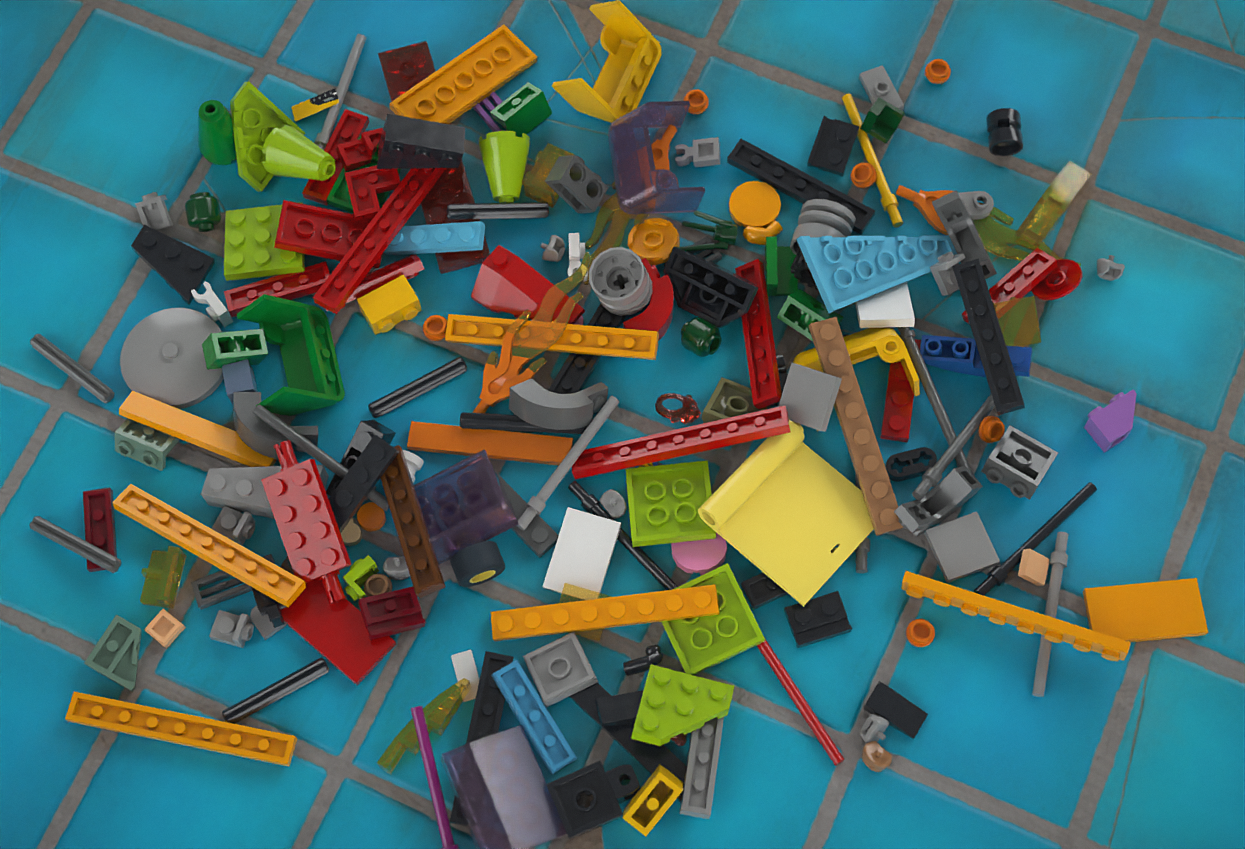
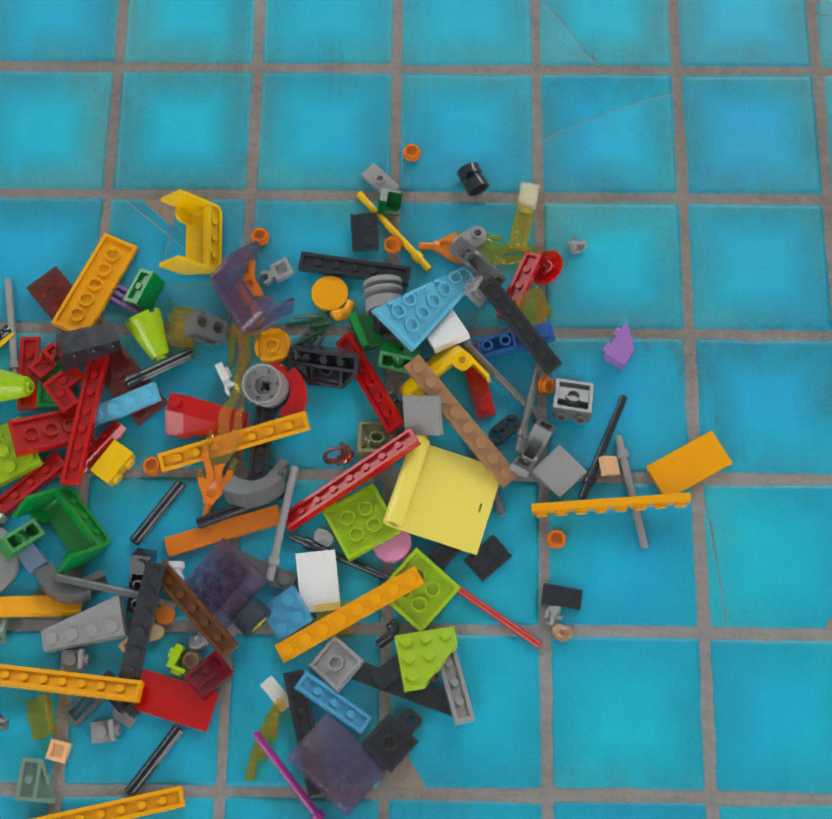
camera: 25 degrees left, 5 degrees up
(306, 522) = (125, 639): plate -> none
(526, 579) = (288, 613): none -> dark azure plate
(554, 250) = (208, 378): light grey piece -> none
(652, 800) = (434, 724): yellow brick -> none
(700, 337) = (333, 400): dark green head -> none

